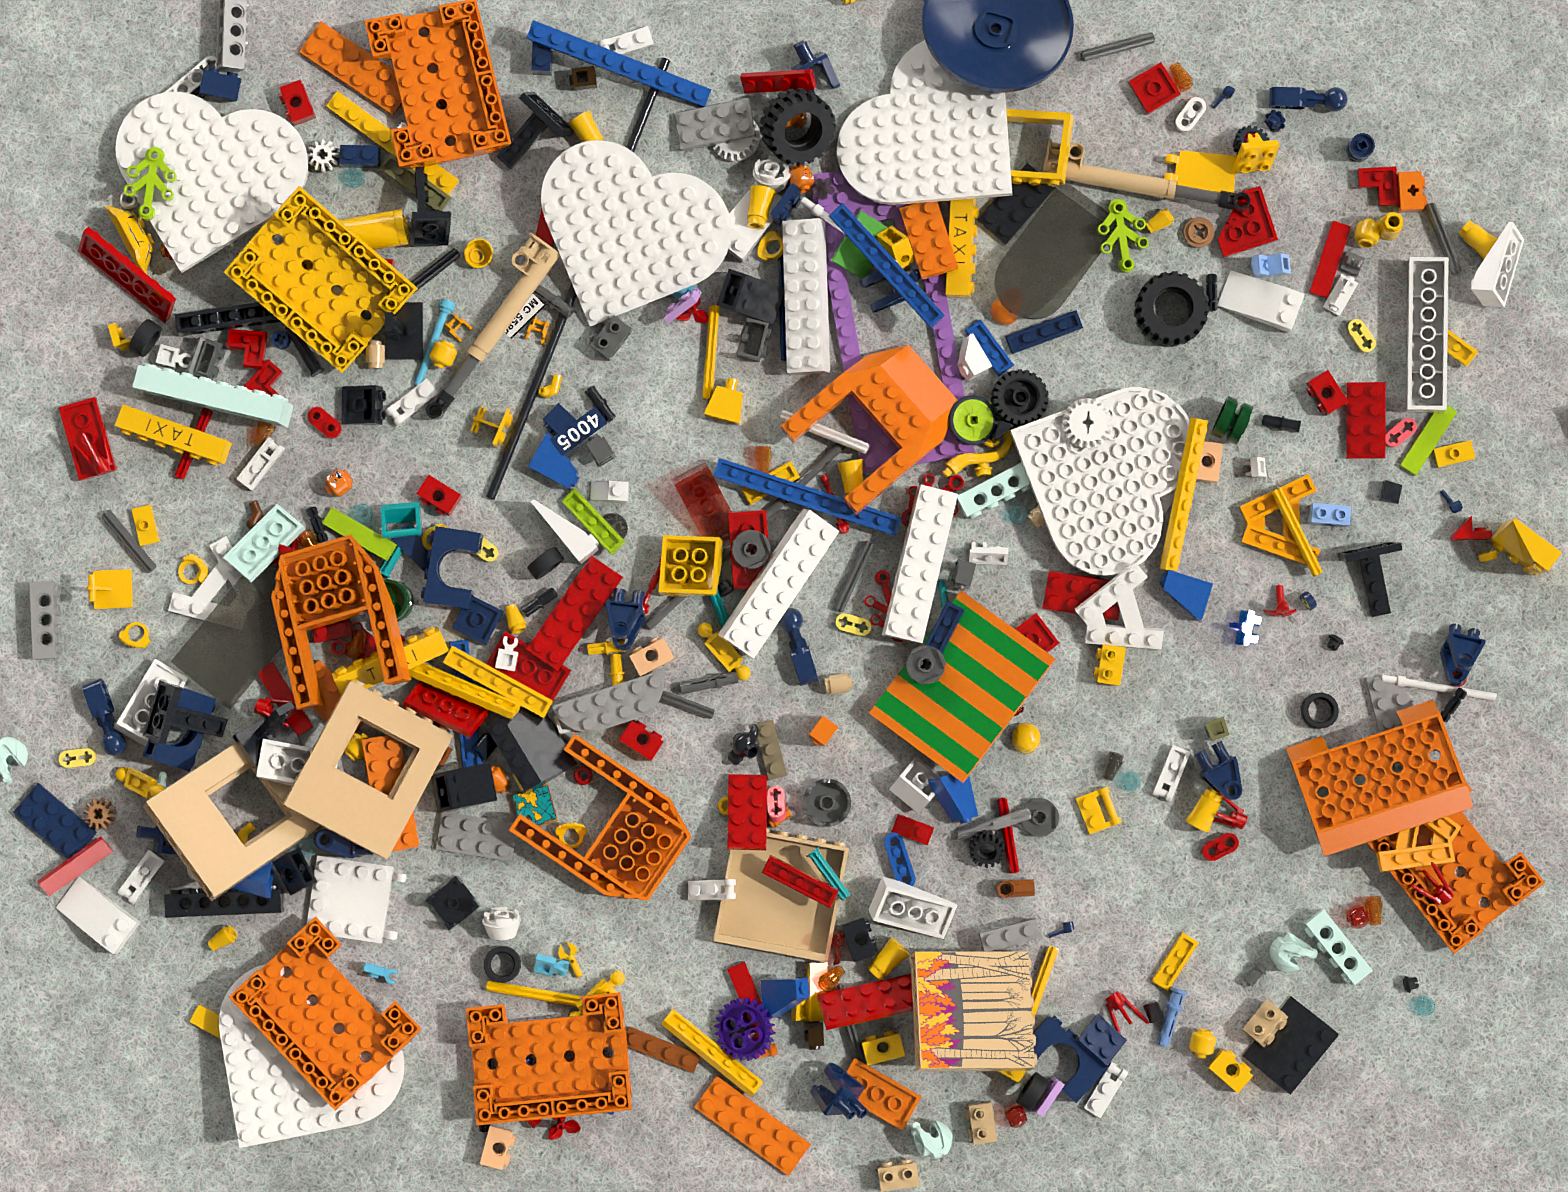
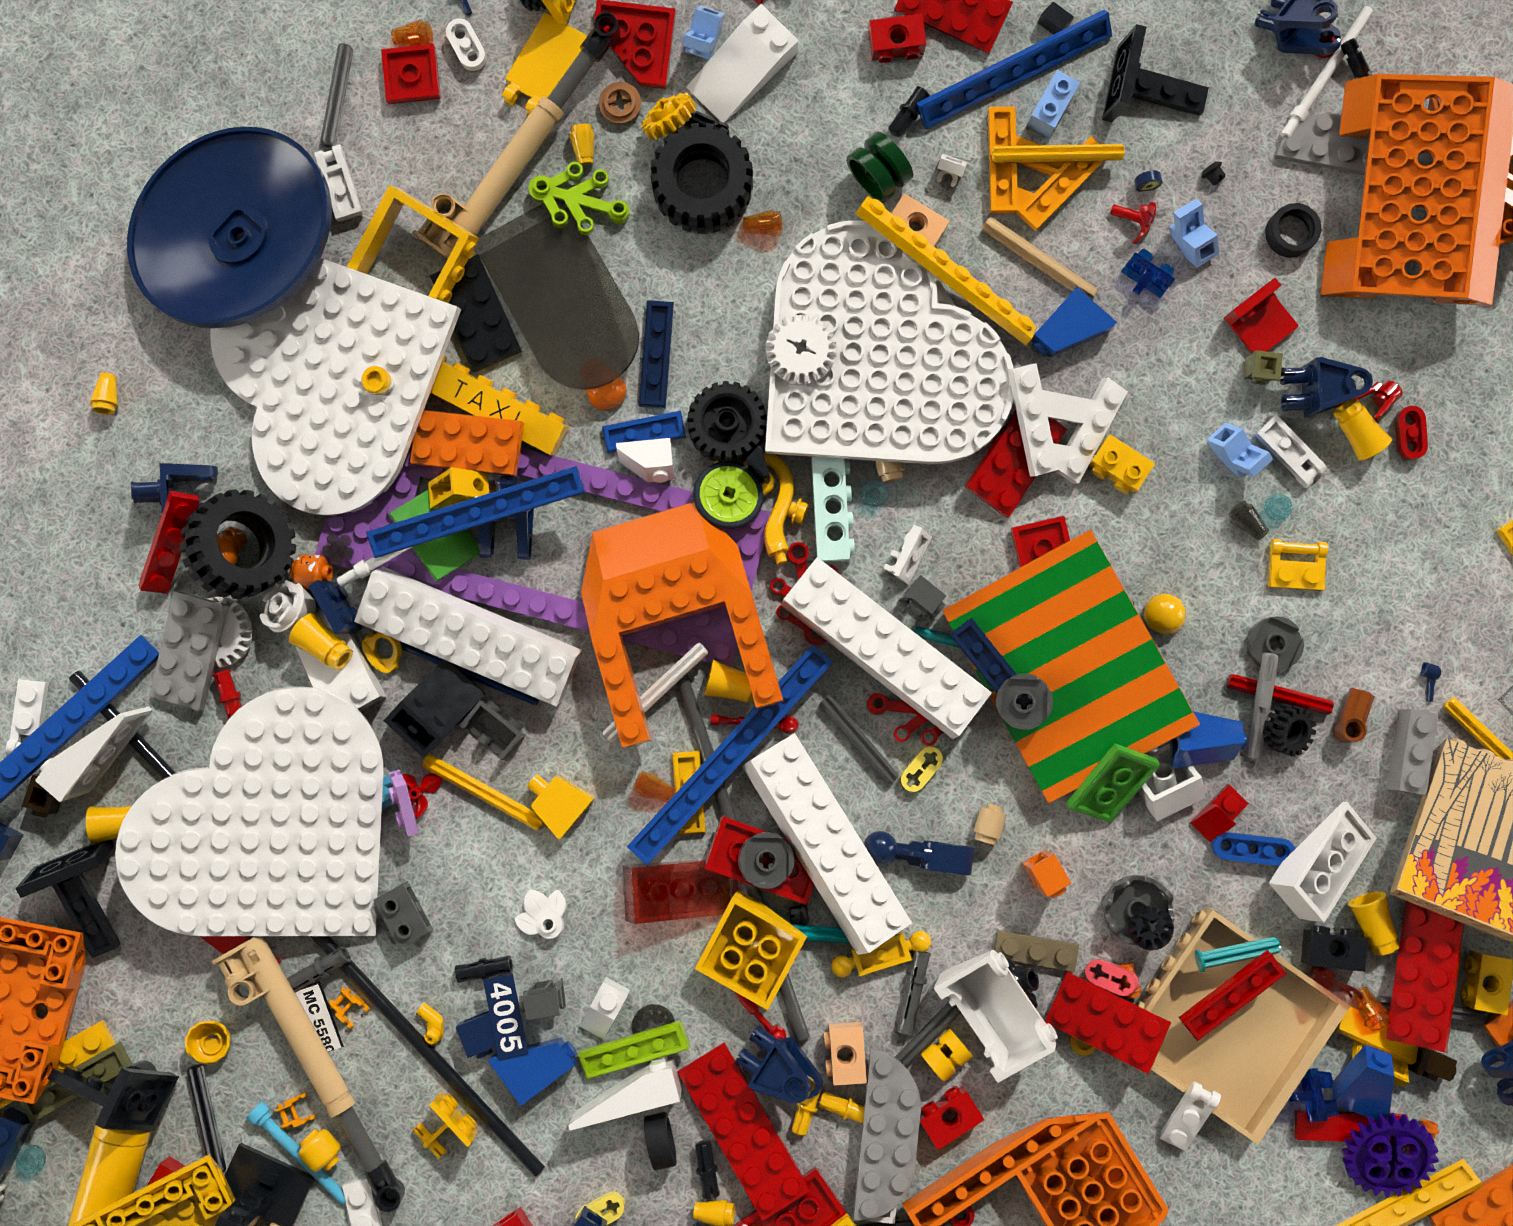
camera: 70 degrees left, 0 degrees up
(613, 93) = (86, 761): none -> white slope
(652, 422) = (540, 910): none -> white plate
(679, 720) = (939, 1062): none -> yellow wheel
(698, 162) = (227, 692): none -> red pin
(723, 735) = (998, 1012): none -> white windscreen
(768, 962) = (1312, 1086): none -> clear blue hips
(824, 818) = (1147, 940): none -> black gear
(900, 747) = (1113, 783): none -> bright green tile
(941, 163) = (376, 380): none -> yellow tile
(1061, 76) = (340, 183): none -> white plate
(1154, 736) = (1237, 452): none -> light blue brick
(1162, 362) = (764, 223): none -> clear orange cone
(1202, 268) = (668, 115): none -> yellow gear
(1223, 552) = (1037, 257): none -> tan axle
(1249, 715) = (1261, 319): none -> red bracket
(1285, 645) = (1192, 235): none -> light blue brick
(1342, 480) = (1015, 69): none -> blue tile

